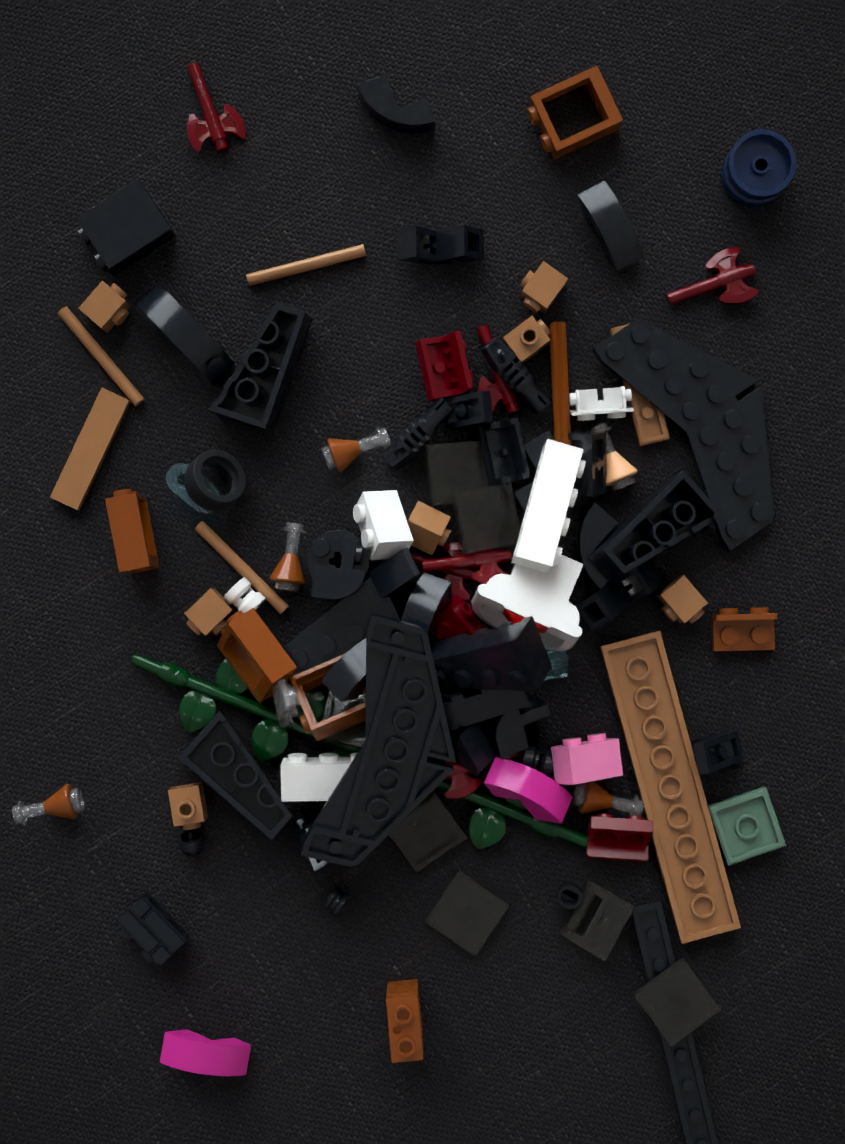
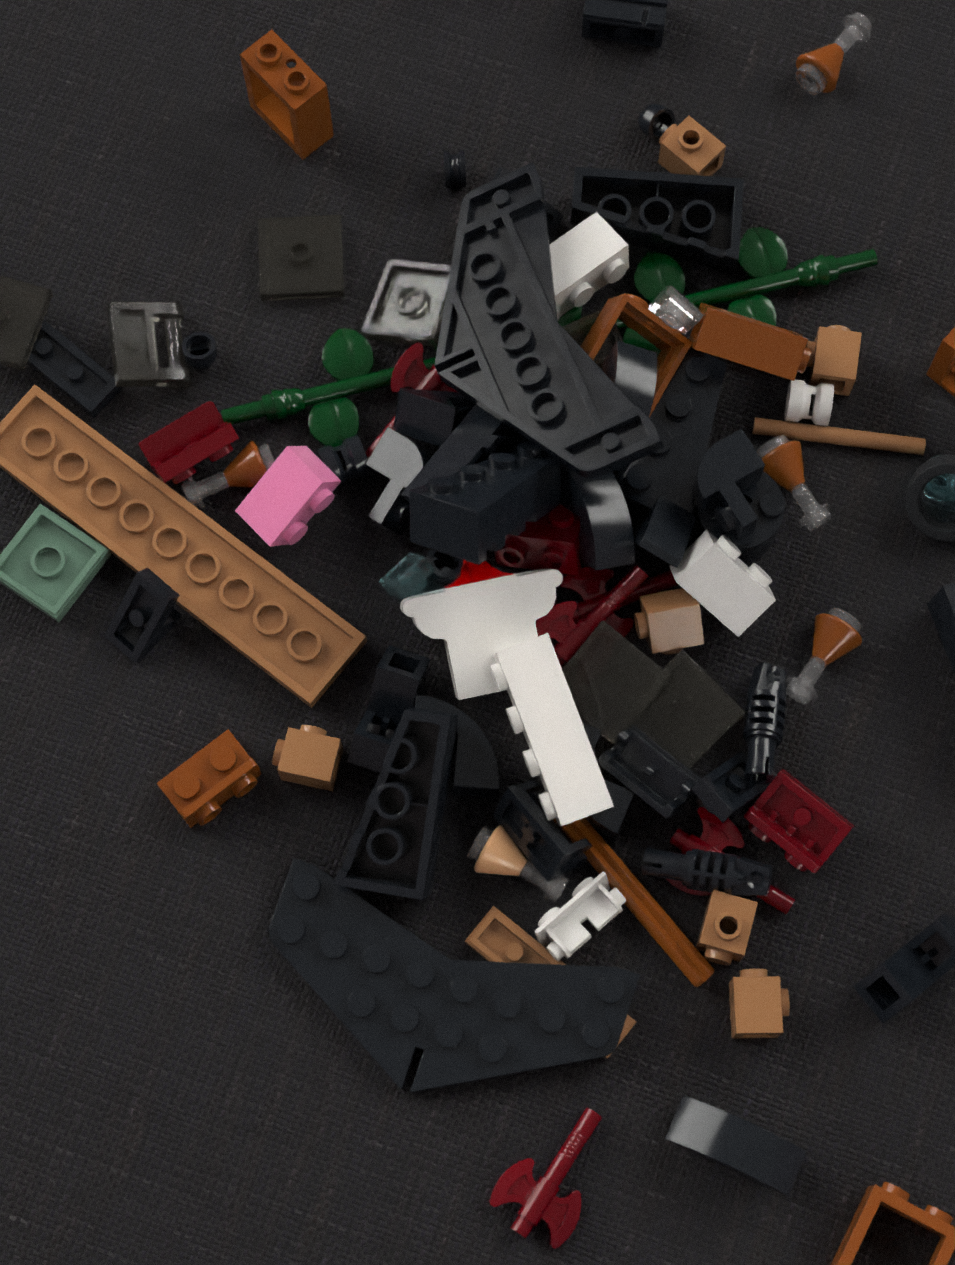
camera: 145 degrees right, 15 degrees down
(536, 791) = (331, 417): dark pink brick -> none

